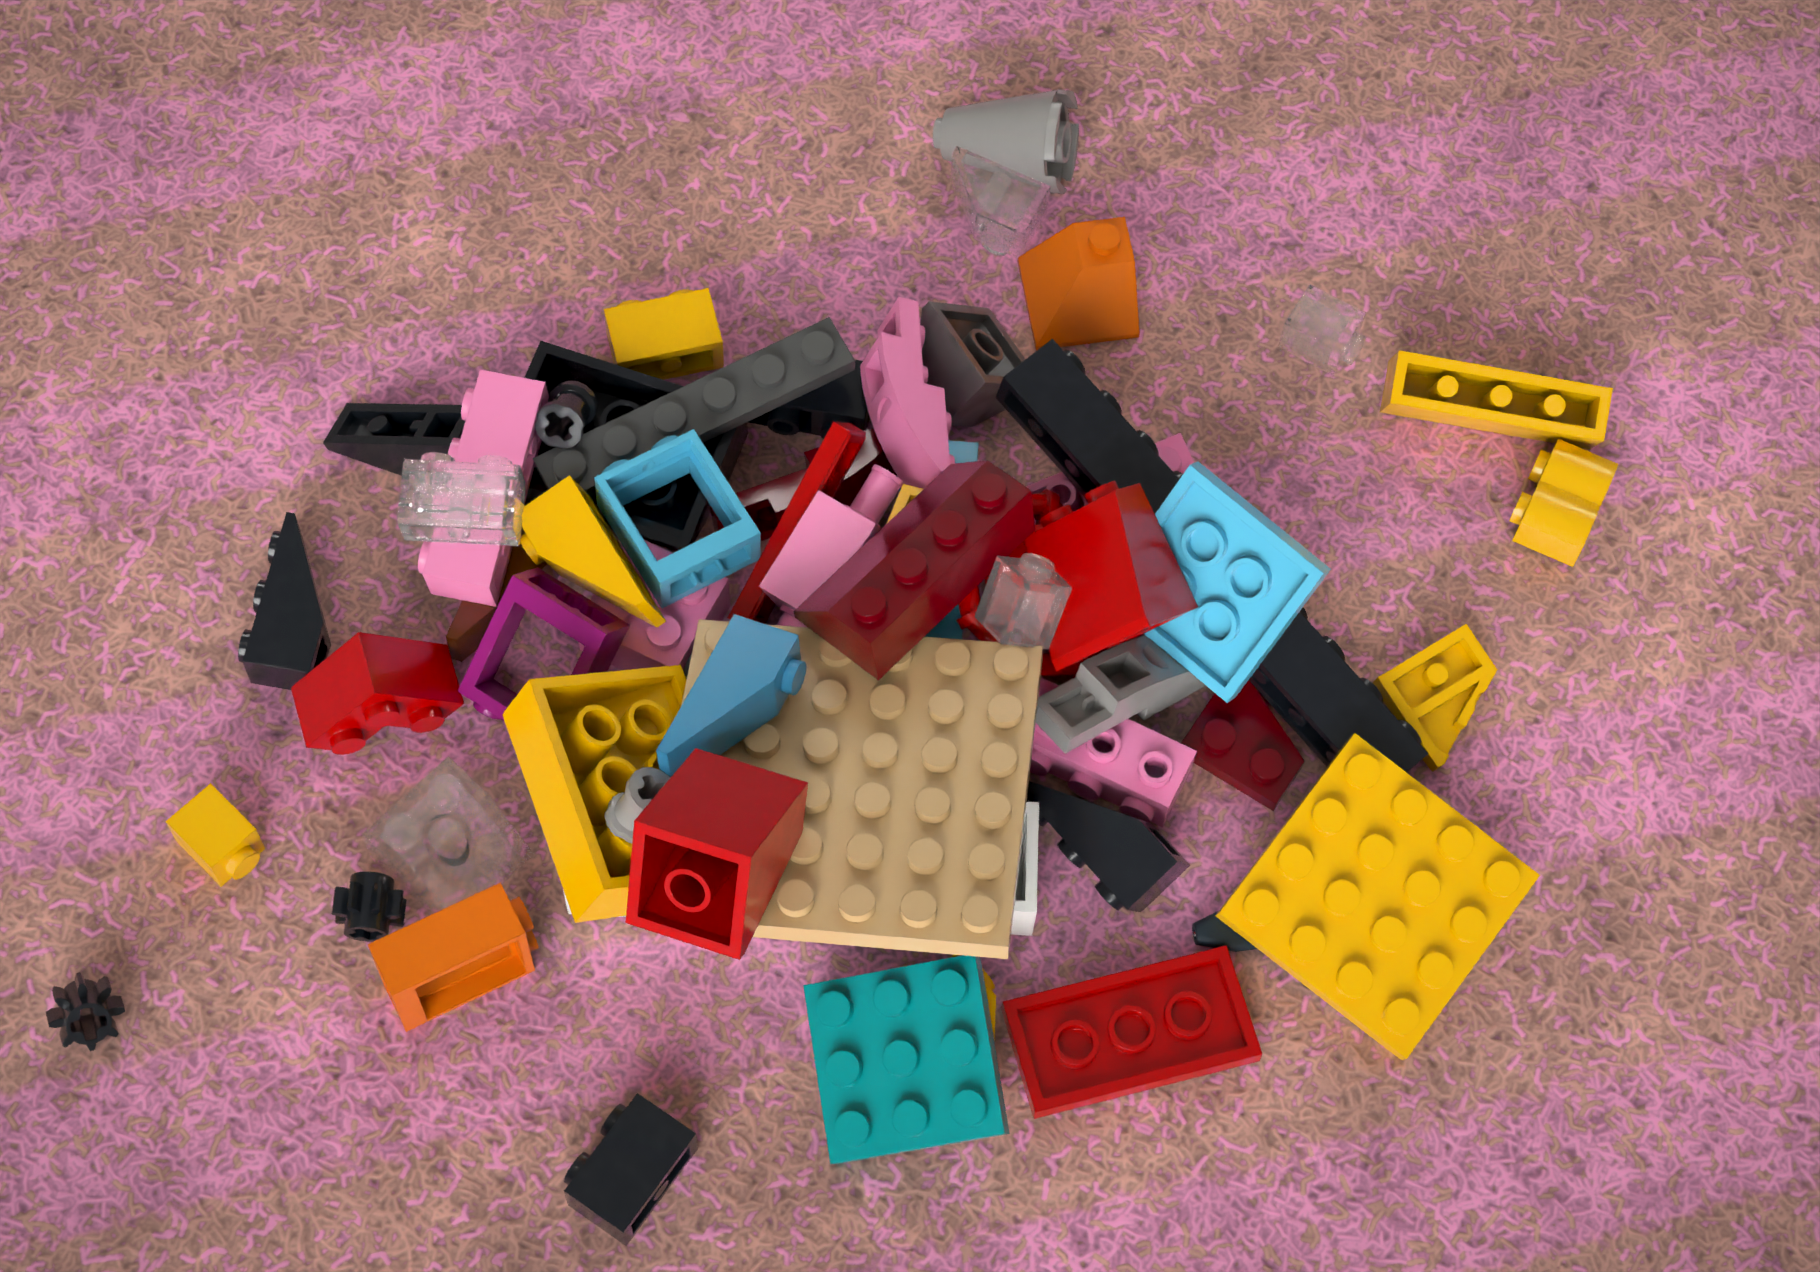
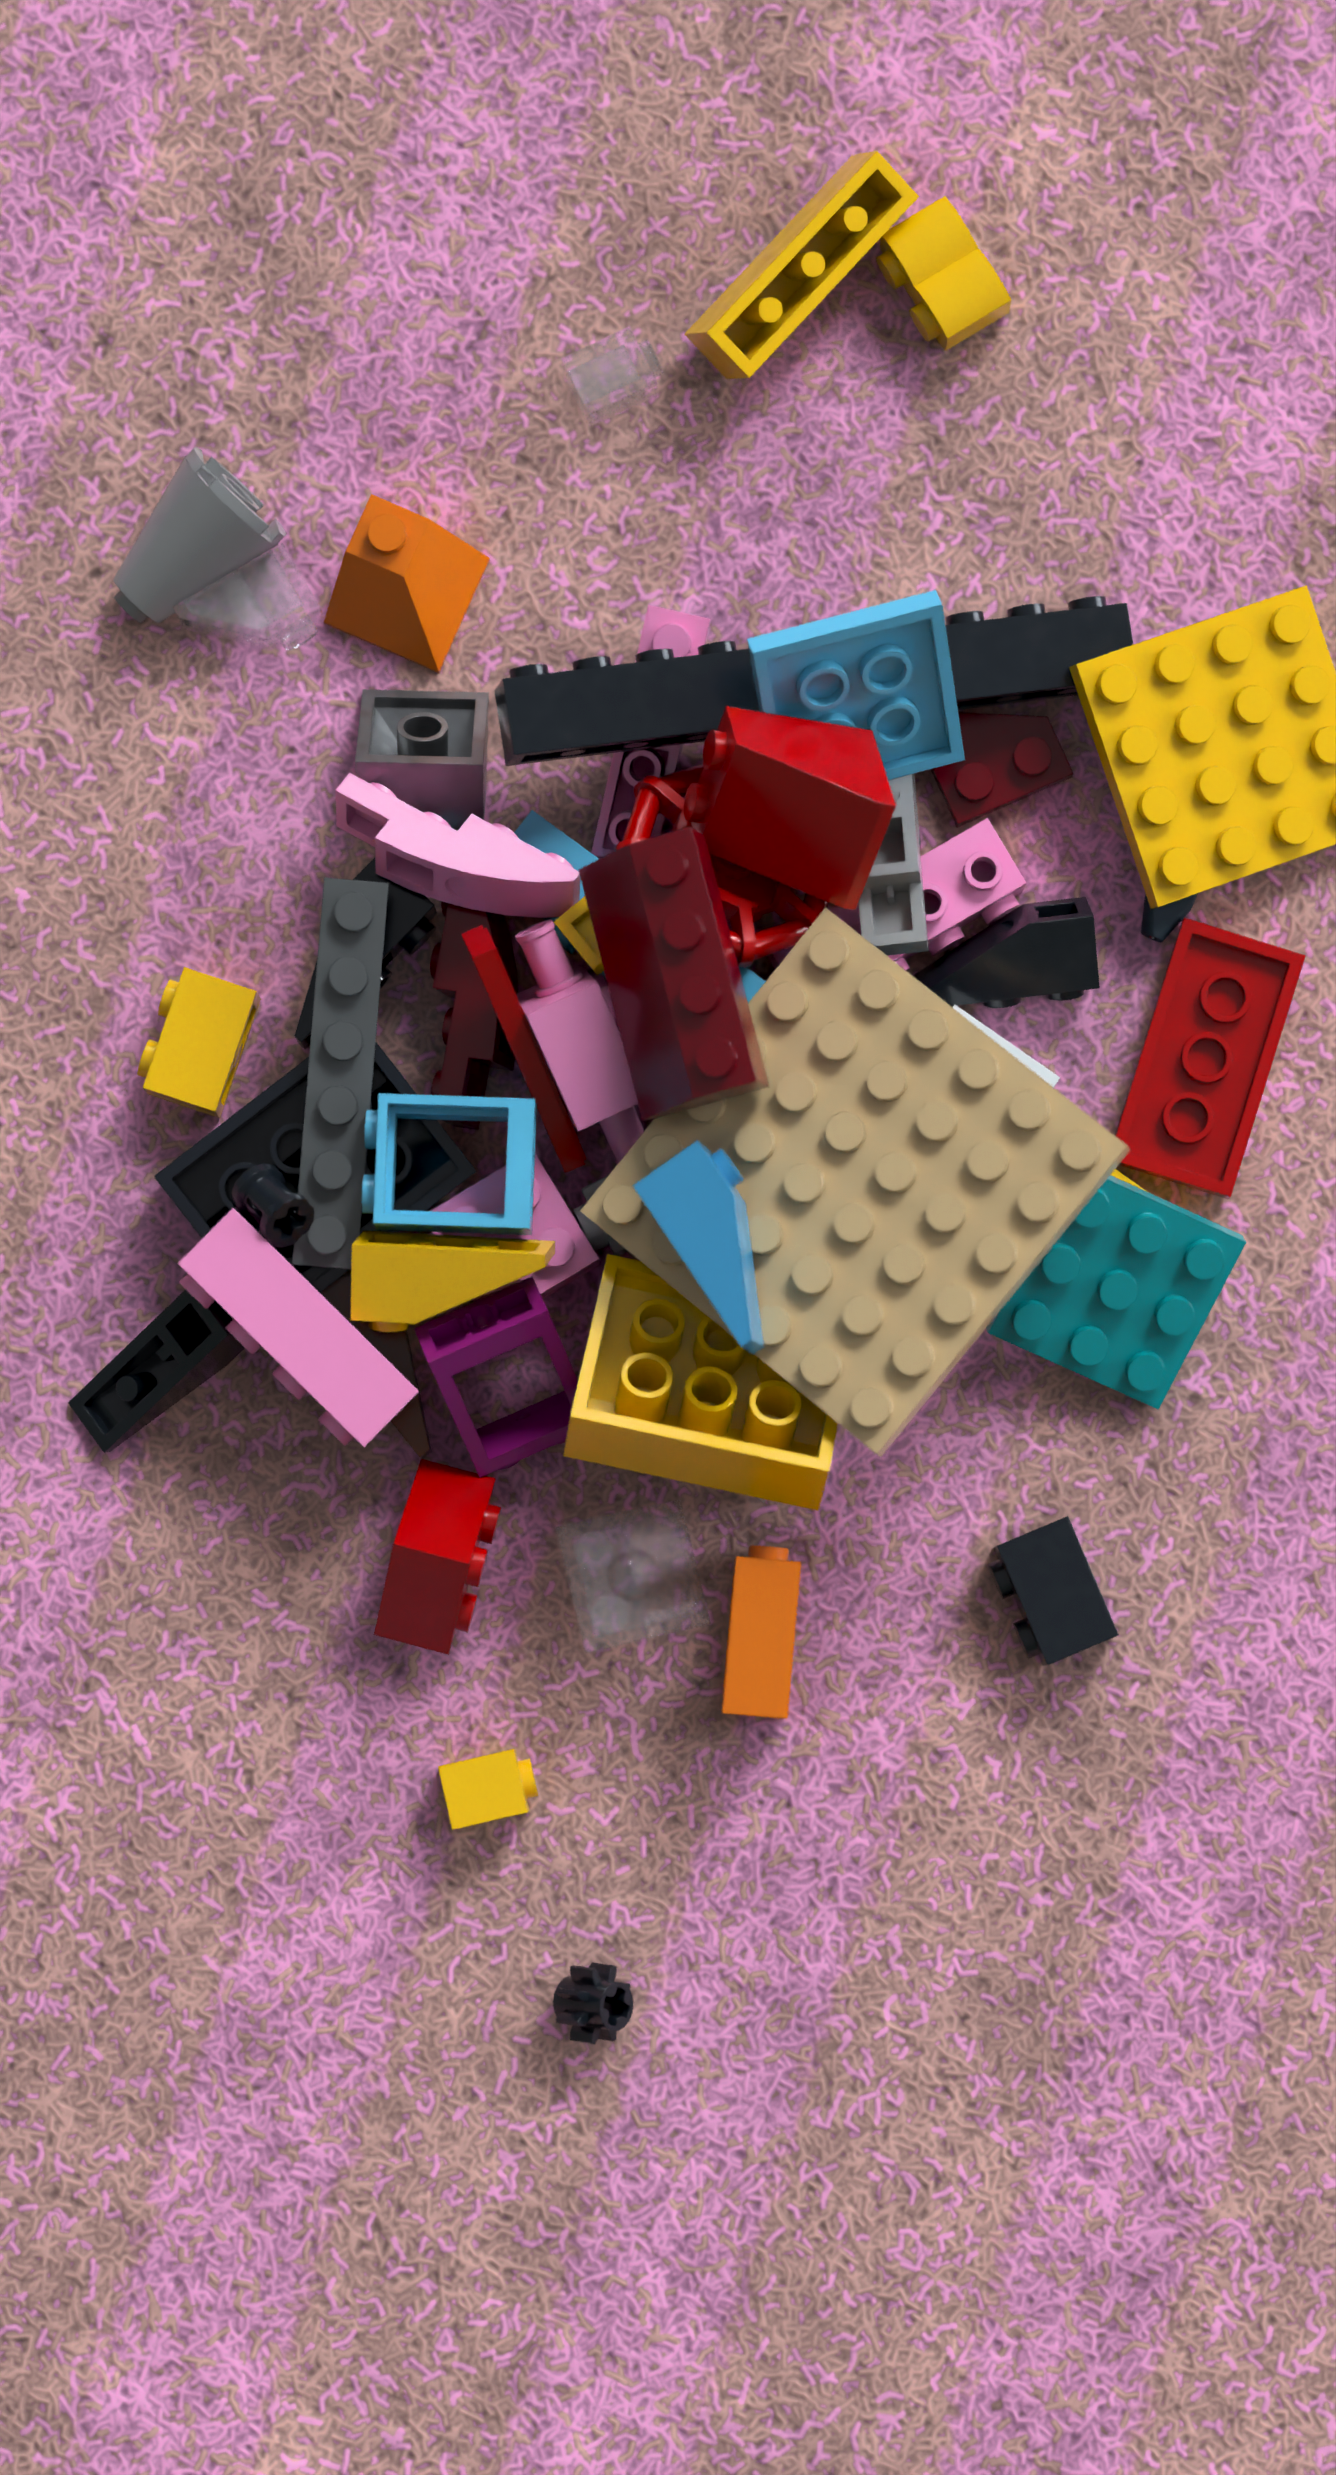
camera: 55 degrees left, 20 degrees up
(289, 622) = (300, 1595): black slope -> none
(368, 906) = (649, 1685): black gear -> none
(461, 500) = (324, 1367): clear brick -> none
(628, 805) = (766, 1387): light grey bush -> none
(713, 851) = (874, 1351): red slope -> none
(1023, 601) = (776, 899): clear brick -> none
(1439, 690) = (1057, 540): yellow wing -> none

